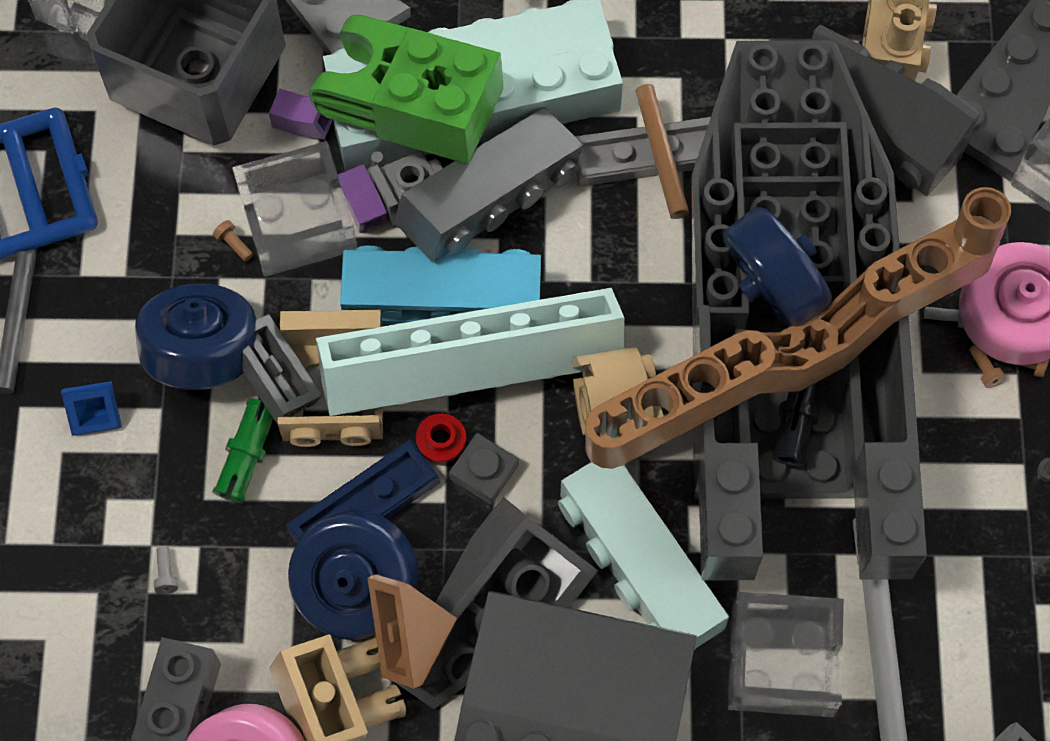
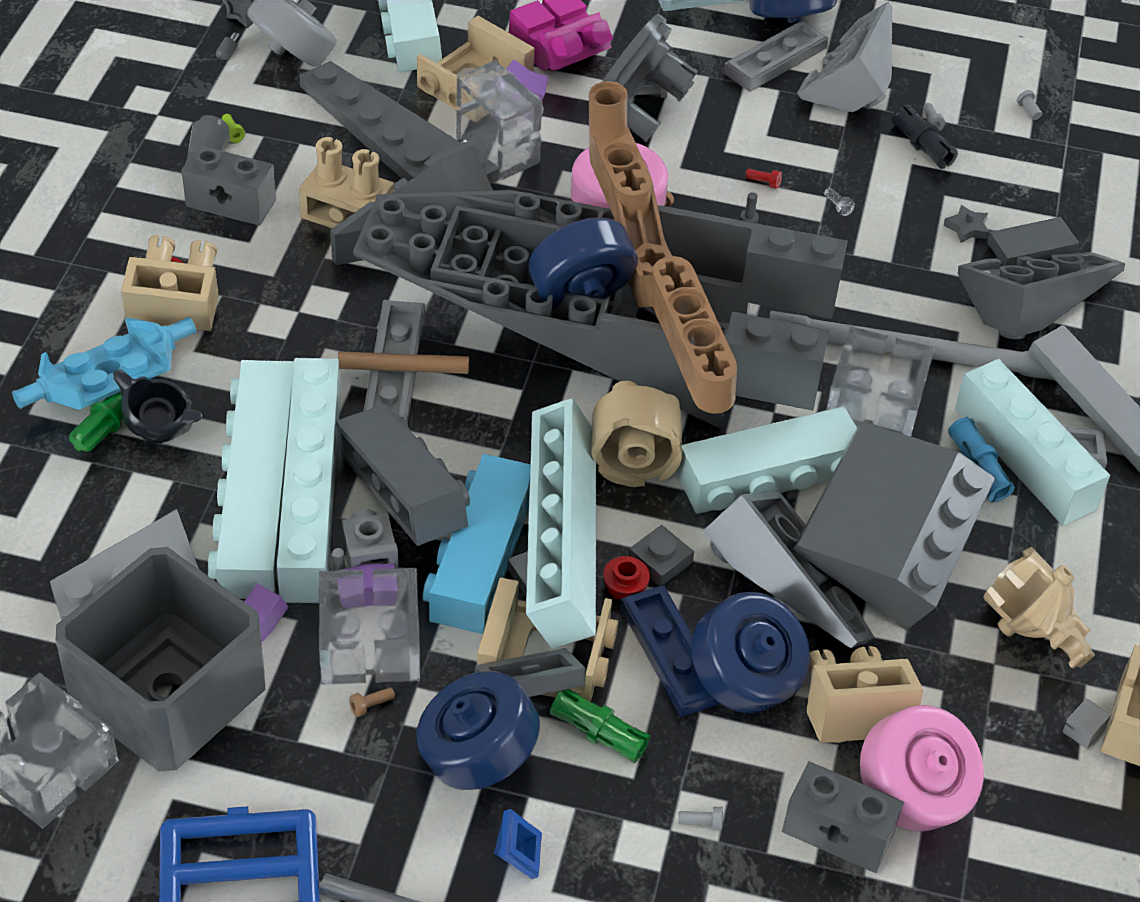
camera: 80 degrees left, 20 degrees down
(407, 630) = (824, 609): medium nougat slope -> none
(414, 87) = (304, 476): bright green brick -> none

